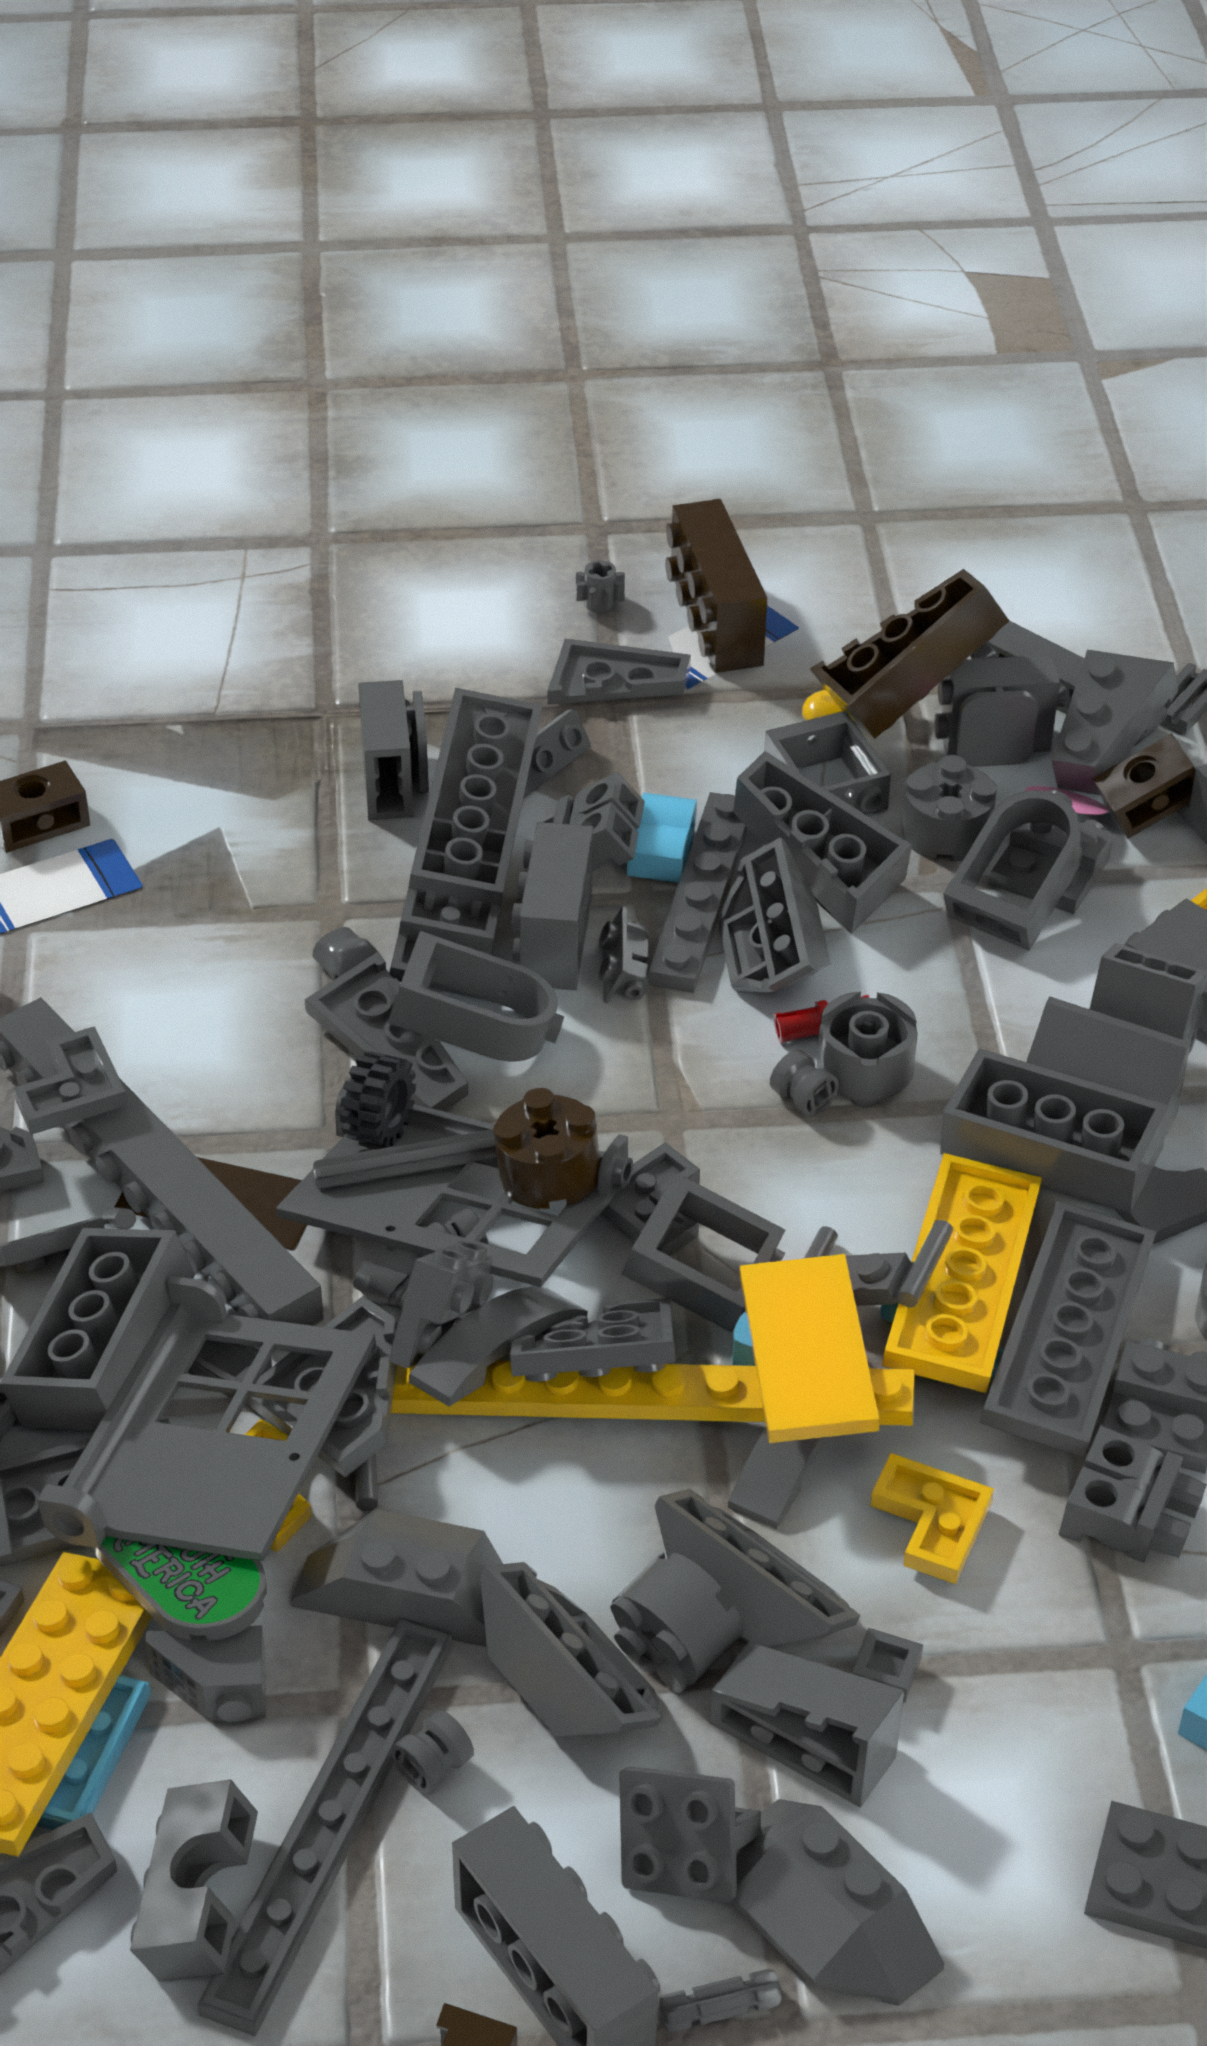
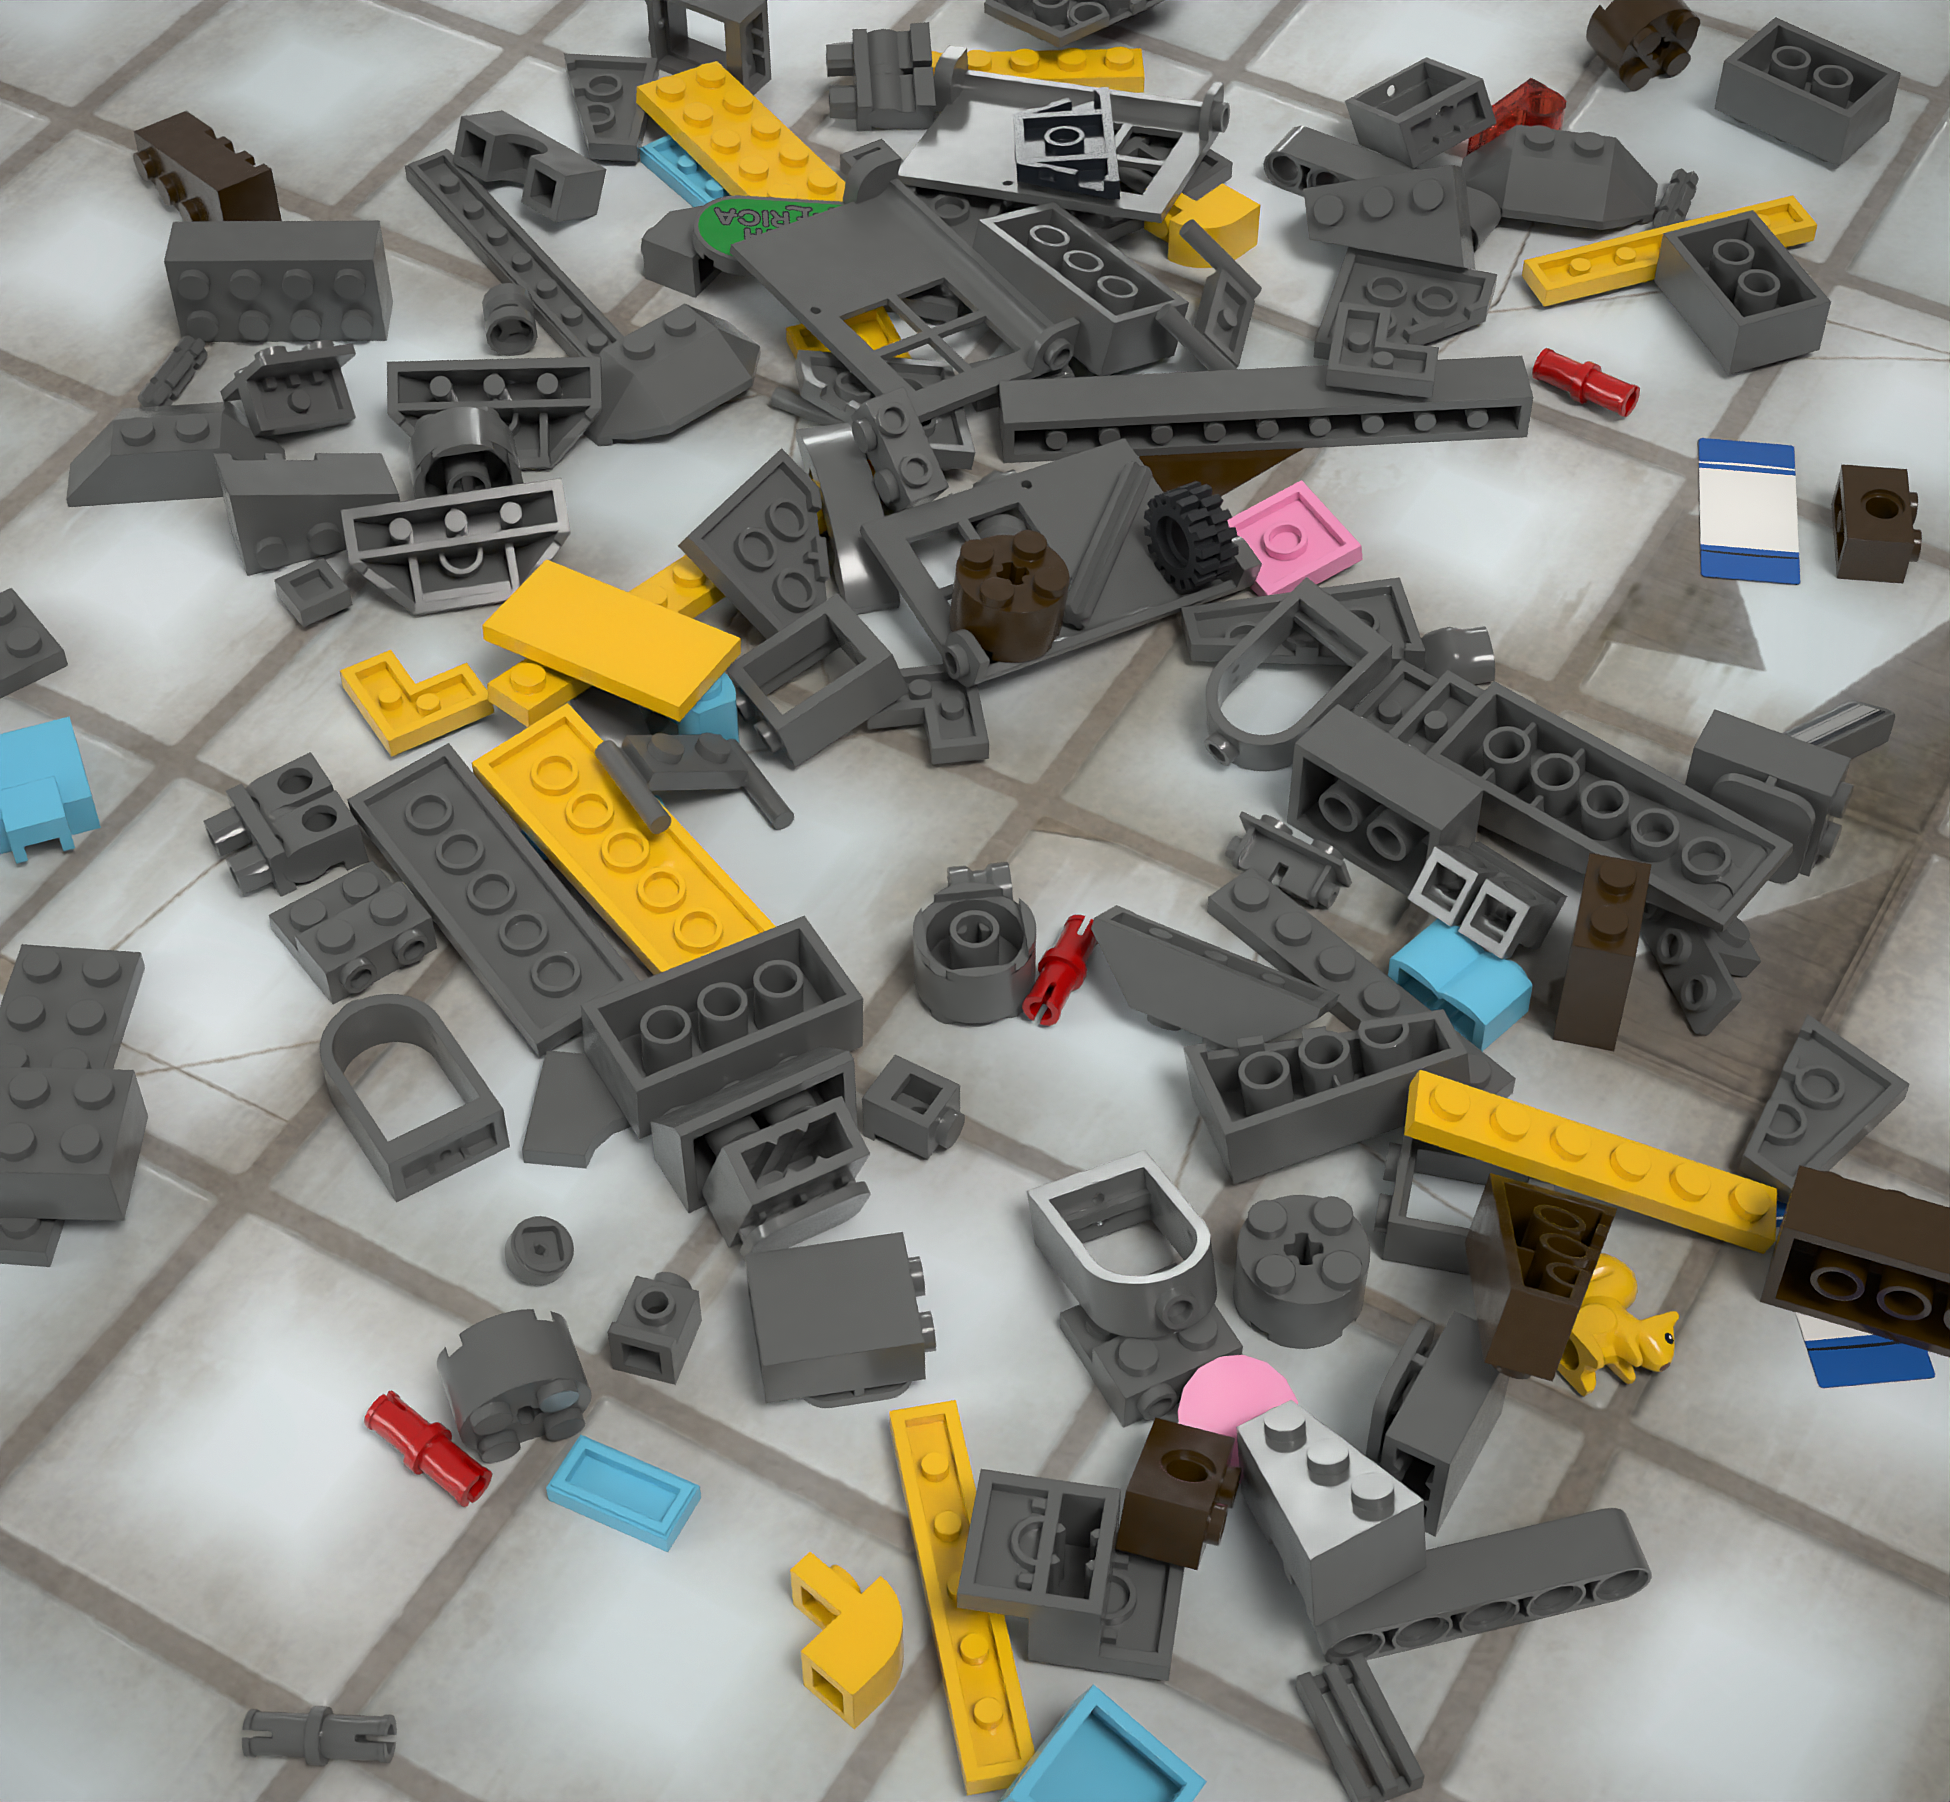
camera: 125 degrees right, 5 degrees up
(275, 765) = (1847, 729): none -> slope
(294, 1092) = (1295, 540): none -> bright pink plate
(598, 742) = (1602, 951): none -> dark brown brick
(767, 714) = (1591, 1161): none -> yellow plate
(1009, 1022) = (913, 1108): none -> dark grey brick

